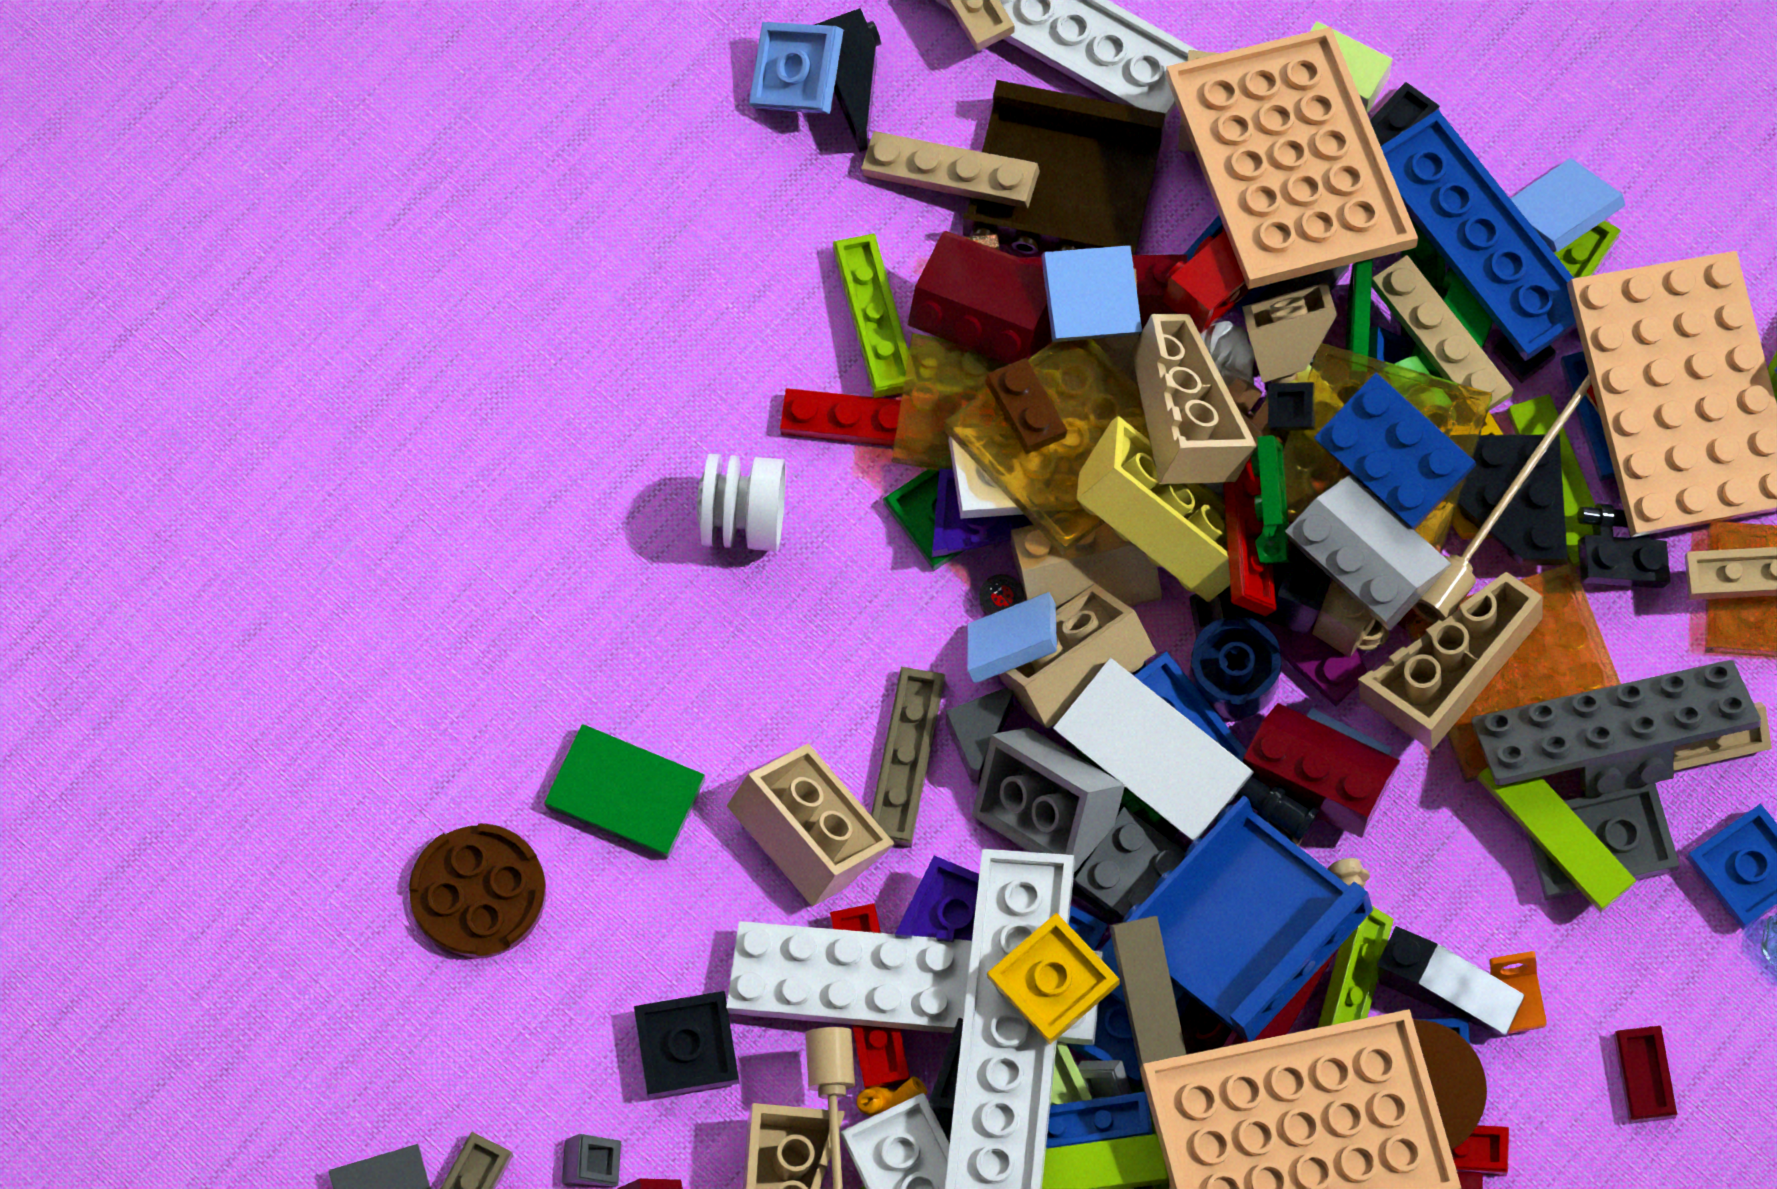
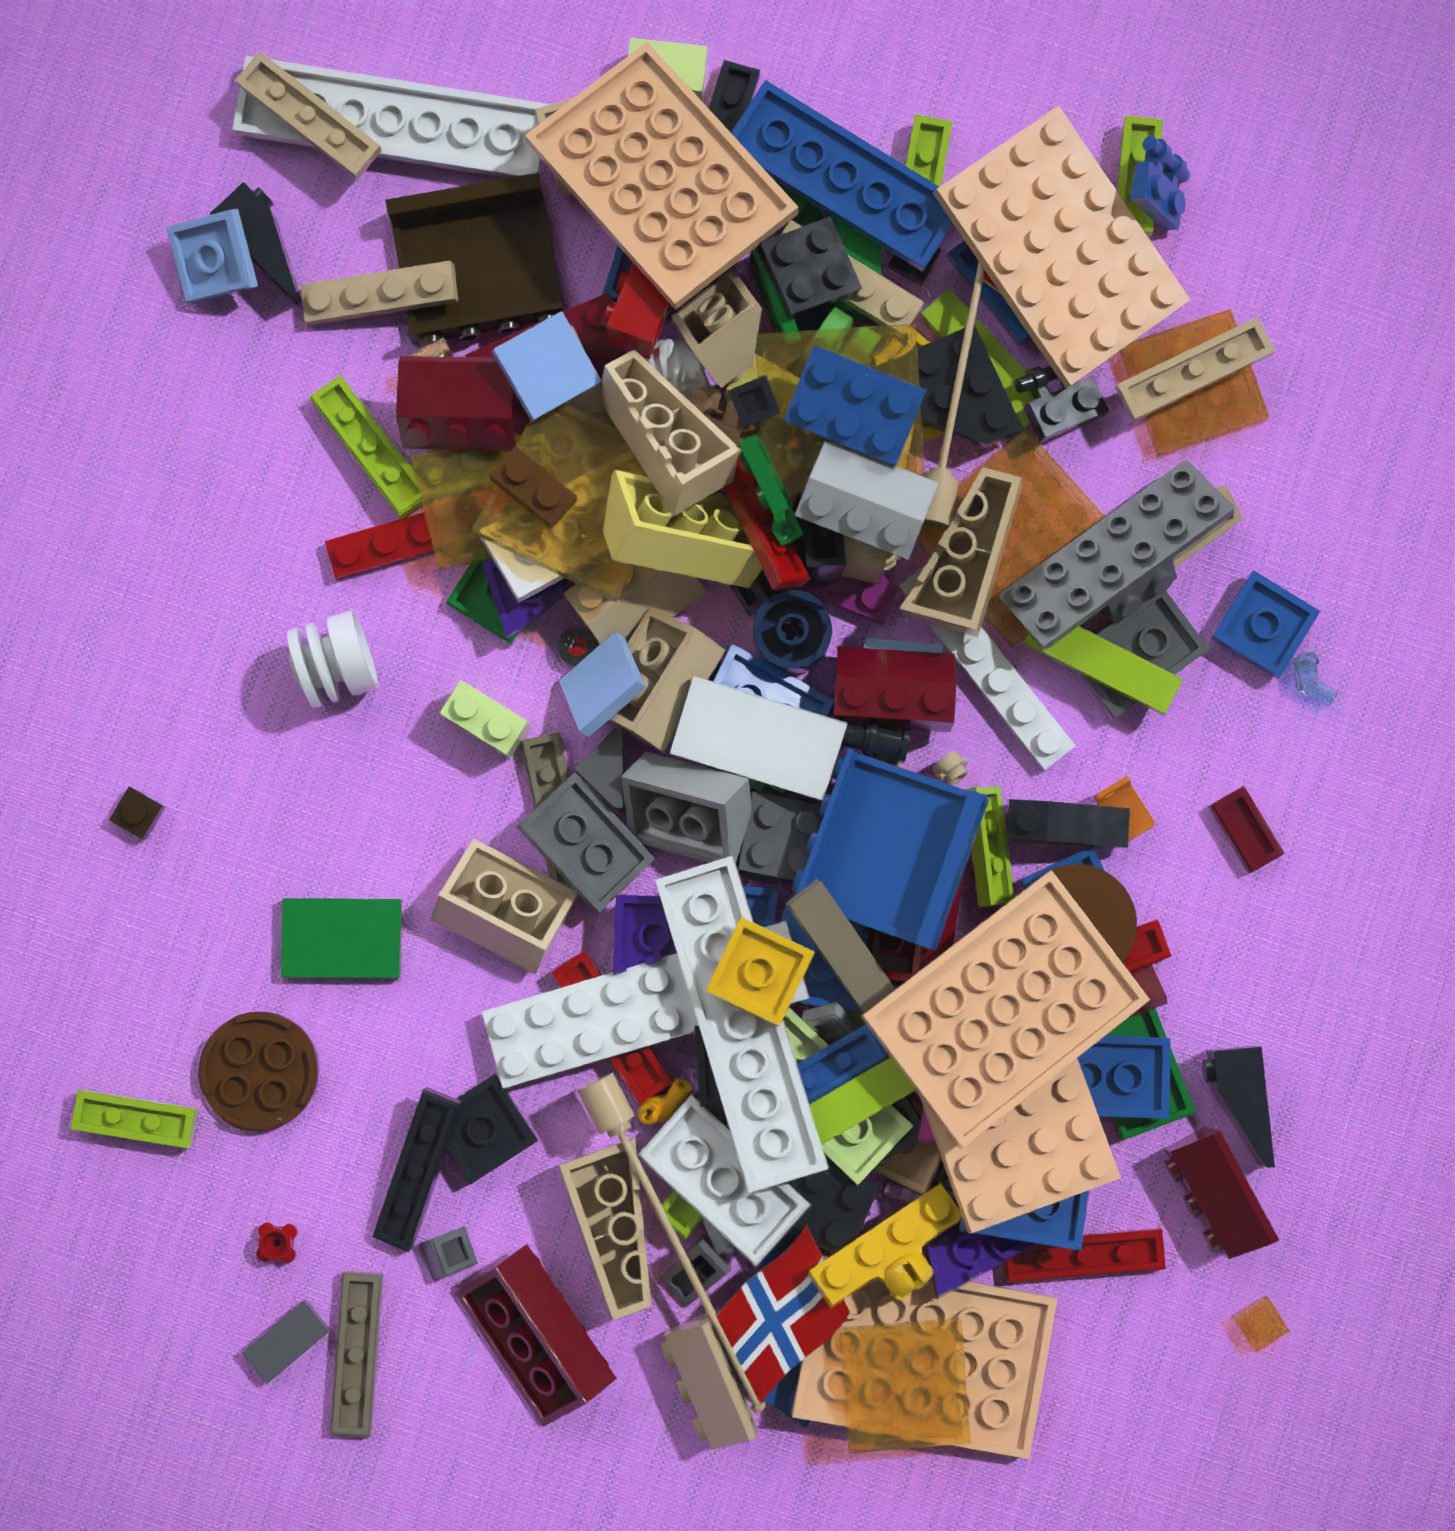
camera: 25 degrees left, 15 degrees up
(327, 883) = (134, 1118): none -> lime plate
(413, 1060) = (267, 1249): none -> red plate
(470, 580) = (137, 813): none -> dark brown plate
(599, 1055) = (417, 1169): none -> black tile
(874, 628) = (485, 719): none -> yellowish green brick
(924, 792) = (585, 842): none -> dark grey plate
(1405, 305) = (809, 267): none -> black plate
(1440, 827) = (1004, 690): none -> white plate
(1567, 203) = (900, 116): light blue tile -> none

